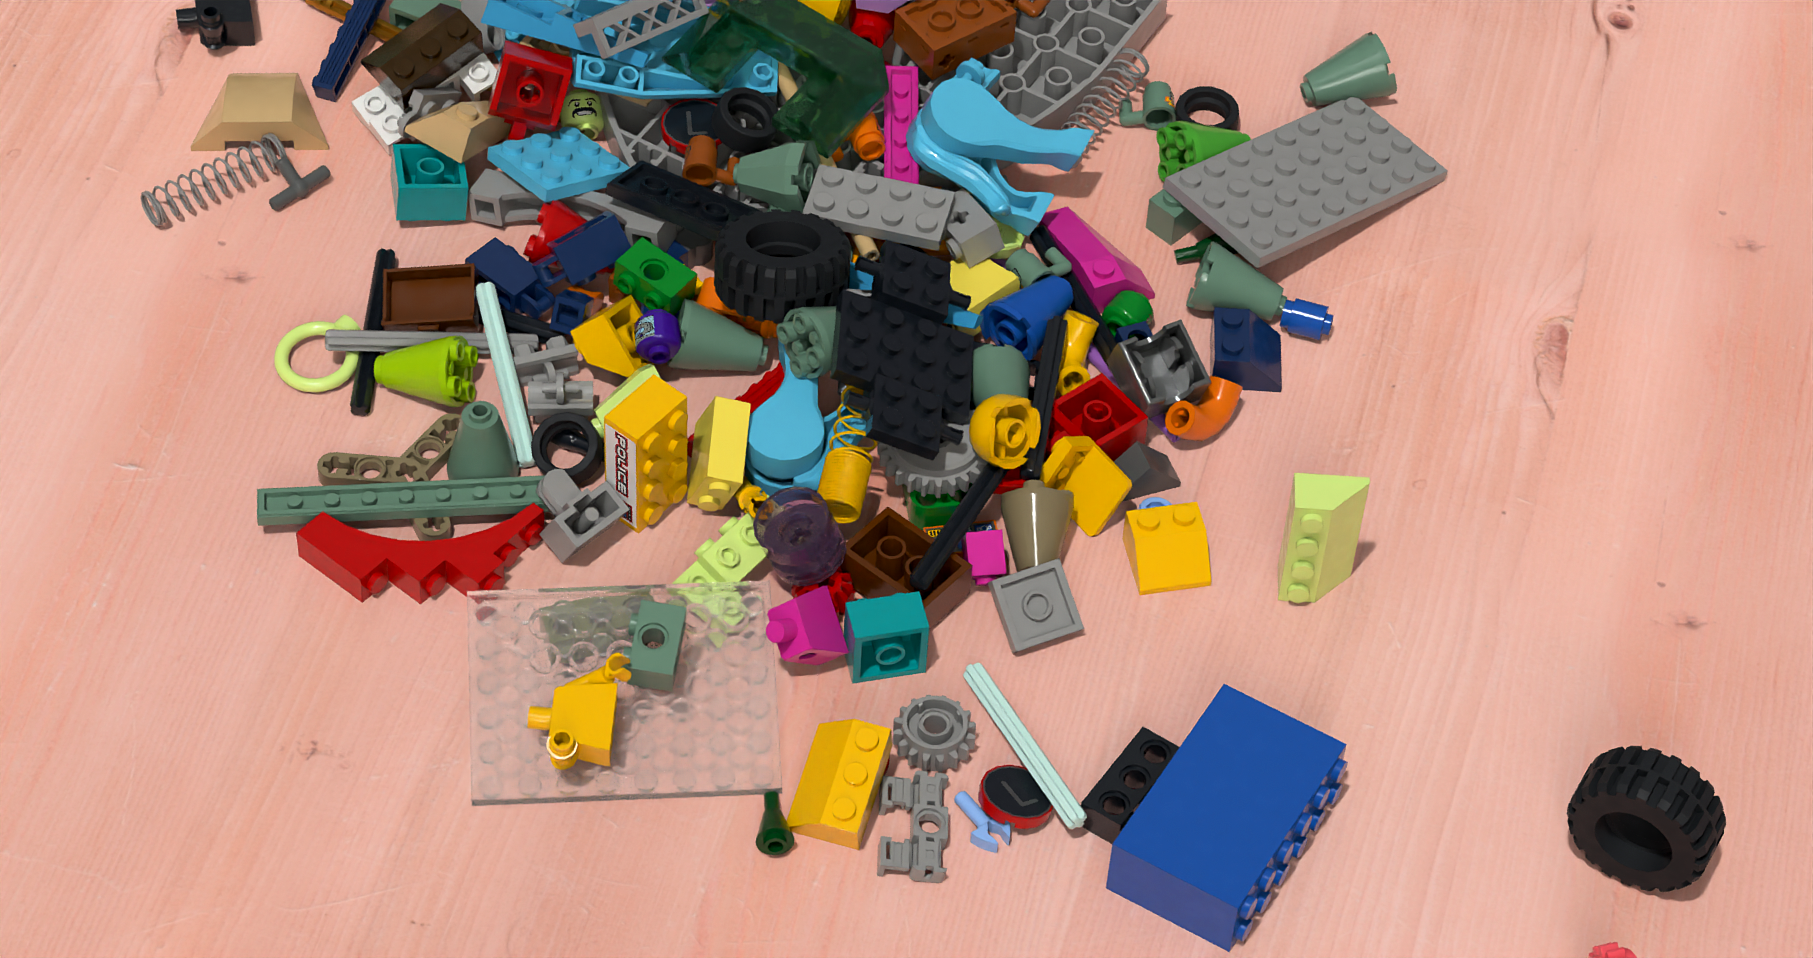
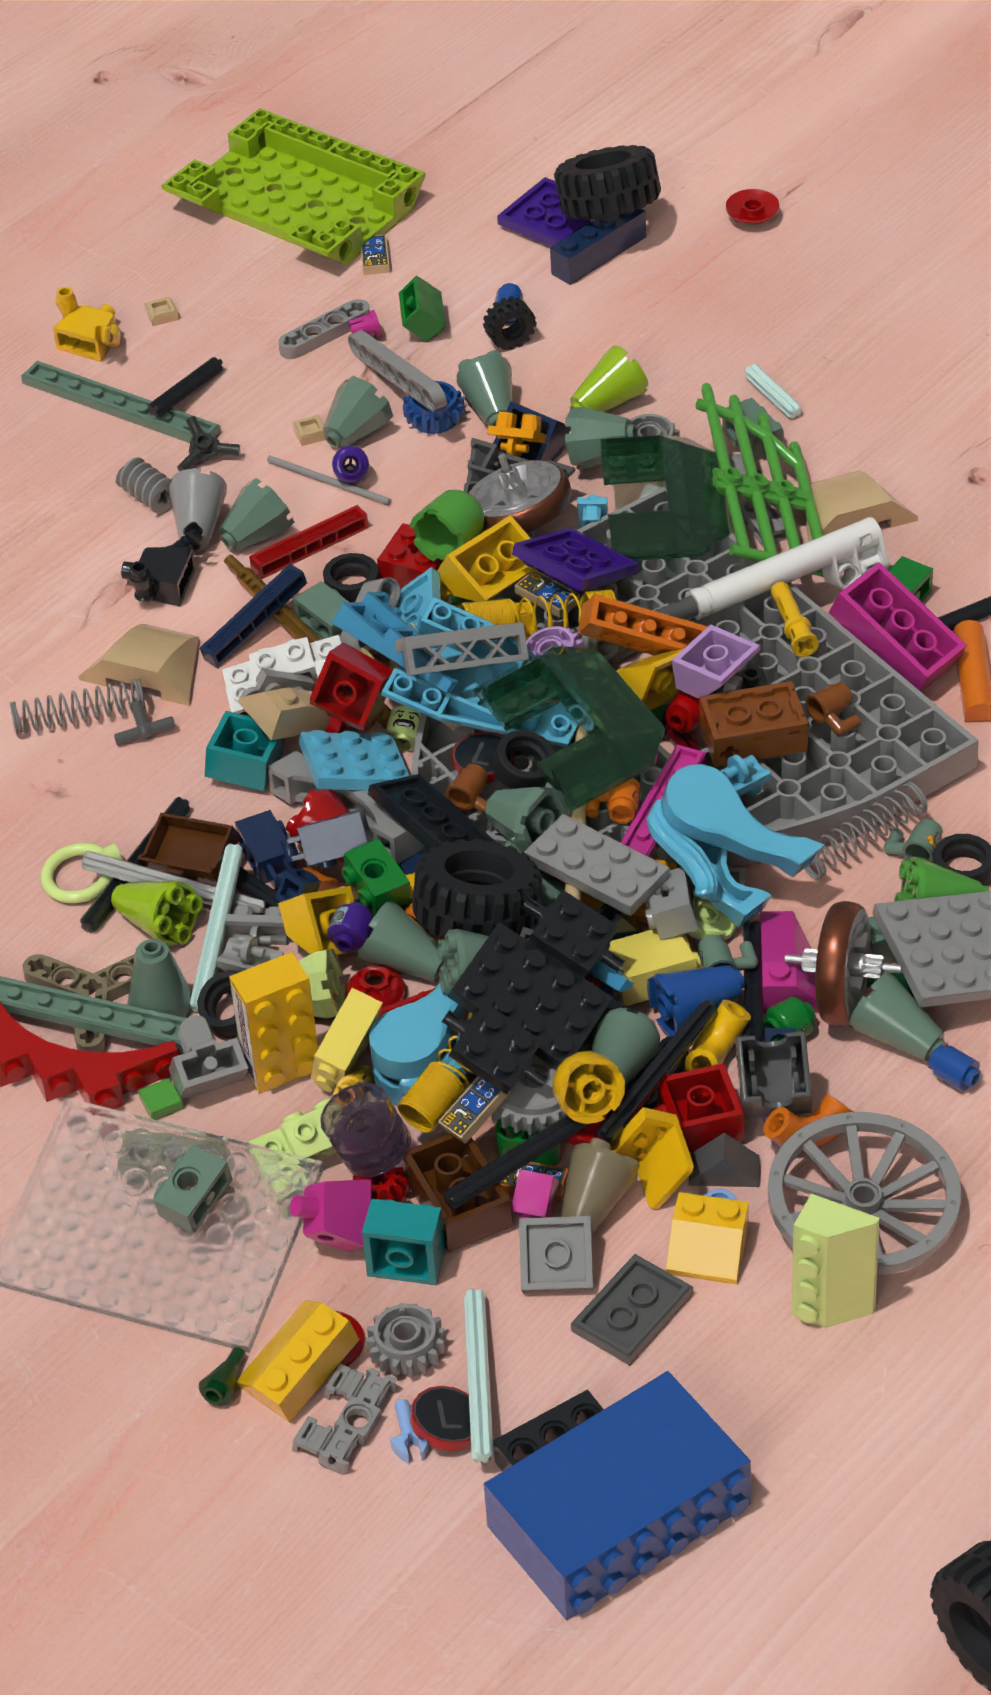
camera: 30 degrees right, 5 degrees down
(425, 53) = (288, 641): dark brown slope -> none
(543, 567) = (160, 1099): none -> bright green tile
(582, 716) = (99, 1233): yellow torso -> none
(699, 400) = (387, 992): none -> red piece
(893, 484) = (472, 1109): none -> tile
(1128, 638) = (631, 1309): none -> dark grey tile
(1165, 244) = (842, 962): none -> wheel
(1245, 350) = (880, 1079): dark blue slope -> none
(1292, 460) = (866, 1193): none -> light grey wheel

